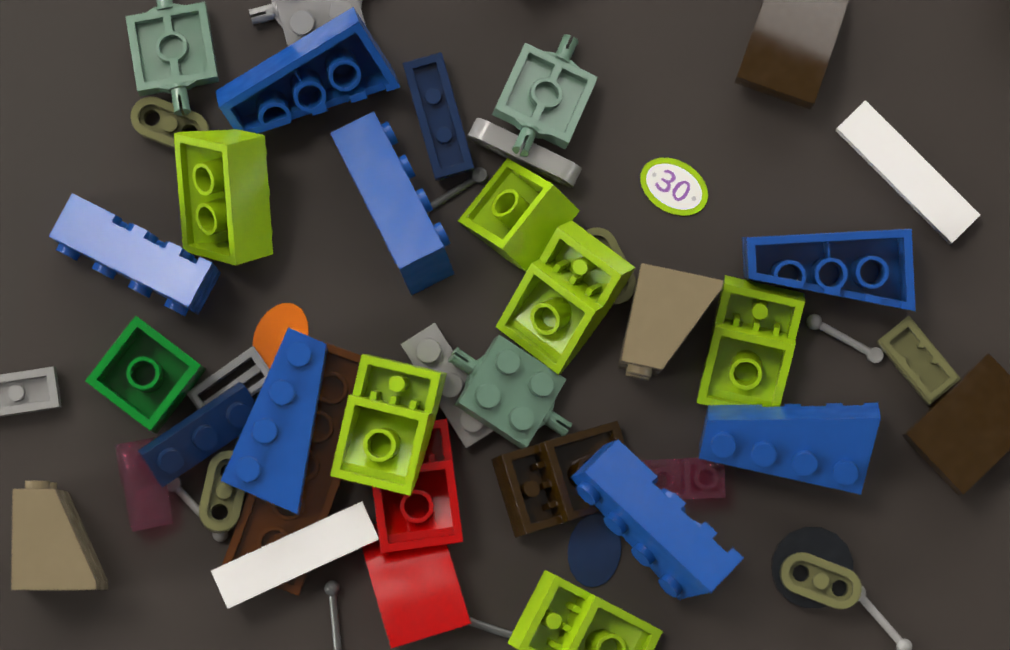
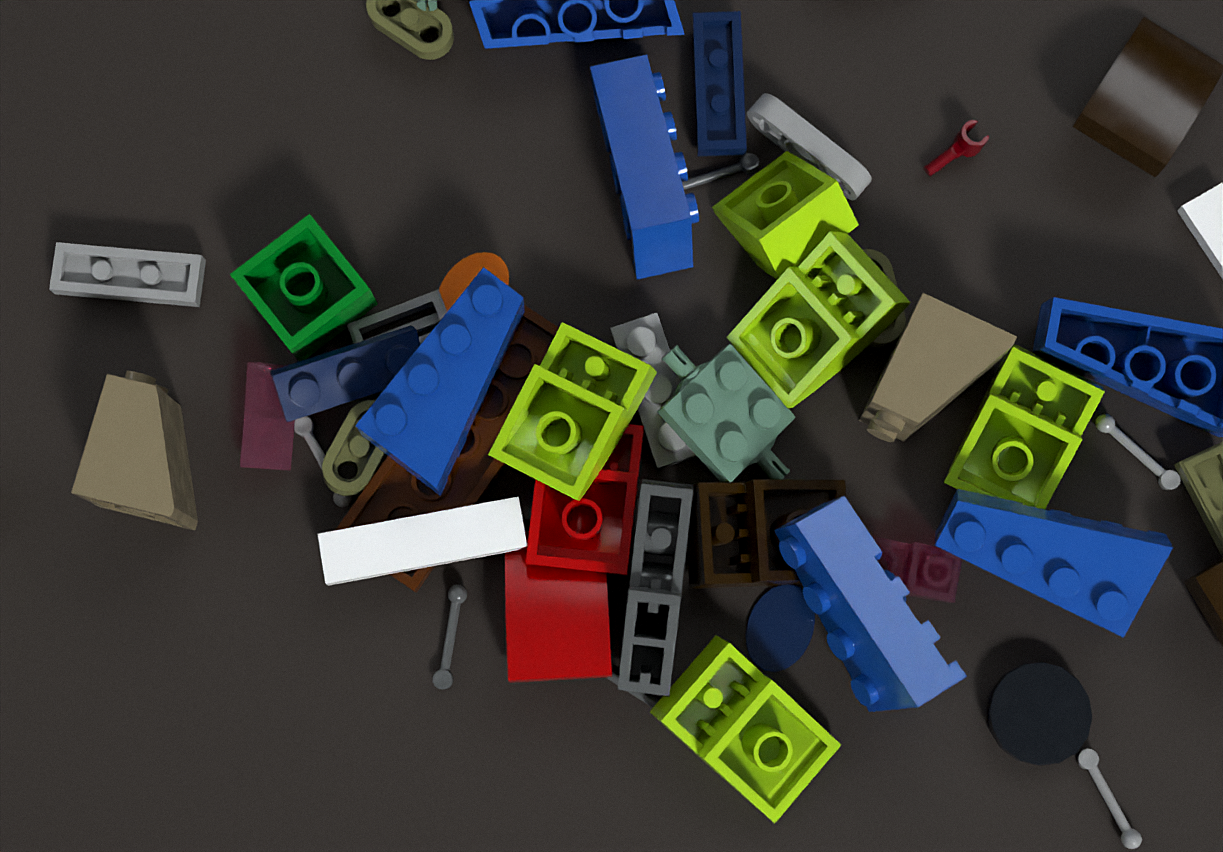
camera: 15 degrees right, 5 degrees down
(134, 255) = (330, 153): wedge -> none
(224, 194) = (450, 105): lime slope -> none
(487, 545) = (655, 587): none -> dark grey brick
(545, 95) = (848, 86): sand green plate -> none
(645, 123) = (961, 146): none -> dark red hand
(674, 186) = (973, 229): sticker -> none
(820, 580) = (1048, 729): olive plate -> none

